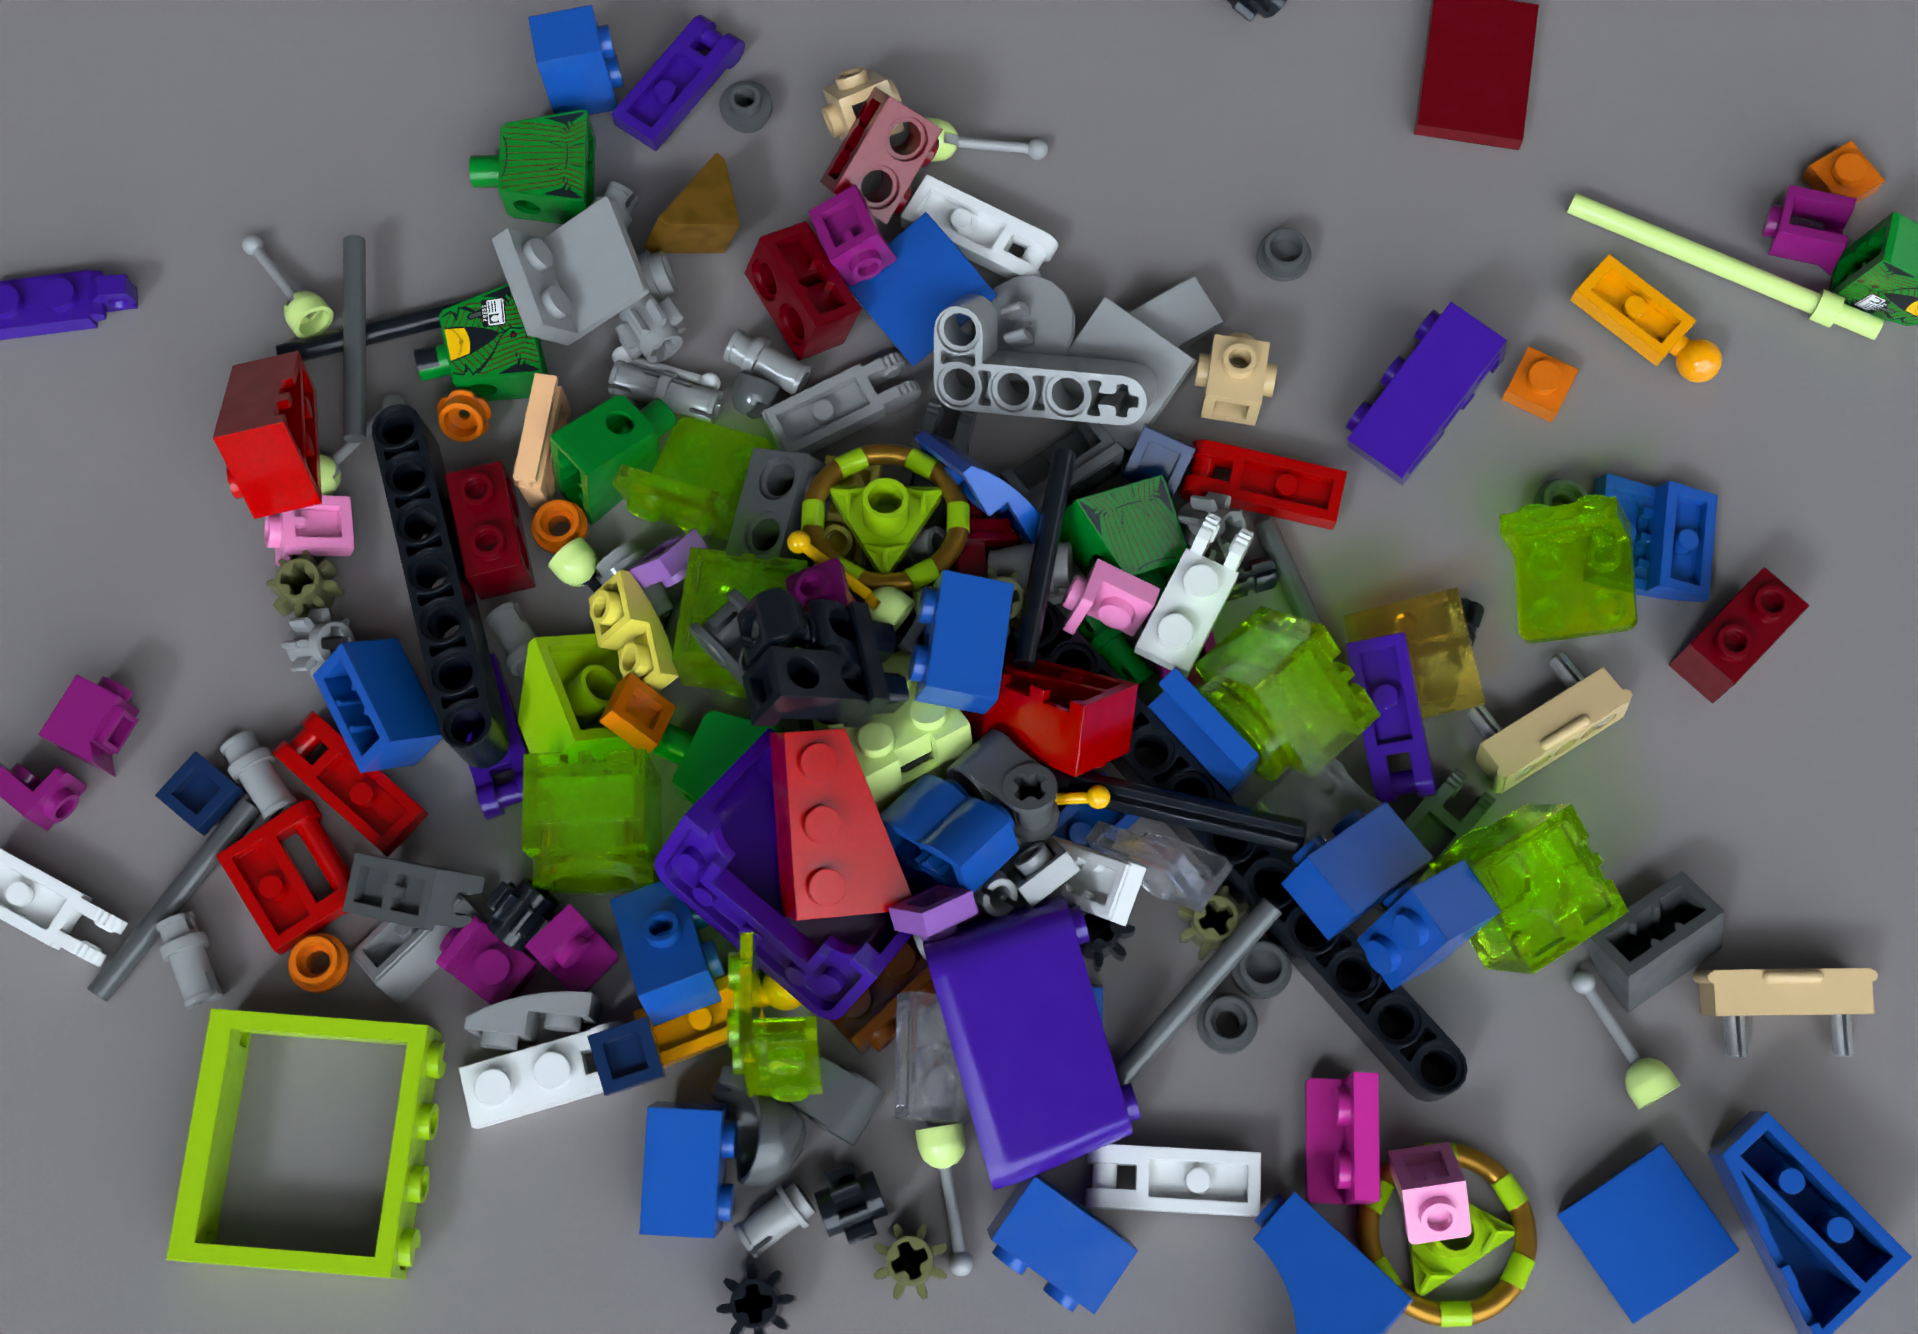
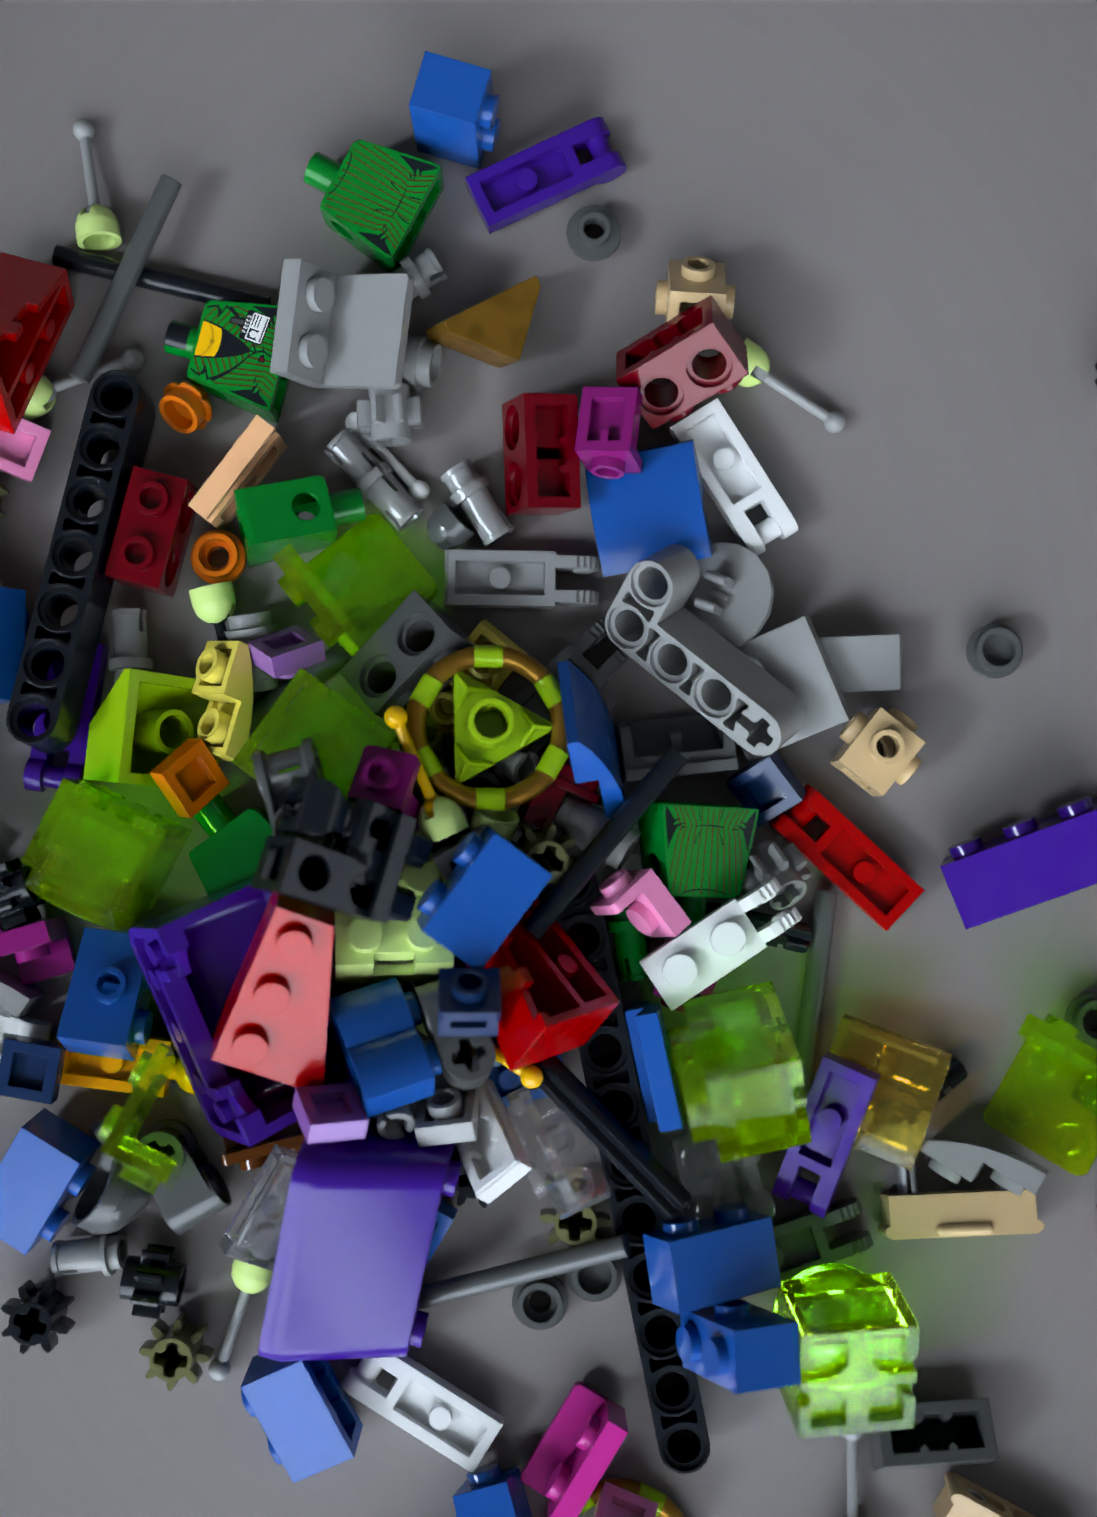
camera: 25 degrees right, 15 degrees up
(1003, 731) = (469, 1001): none -> dark blue bracket
(1525, 671) = (966, 1158): none -> light grey slope

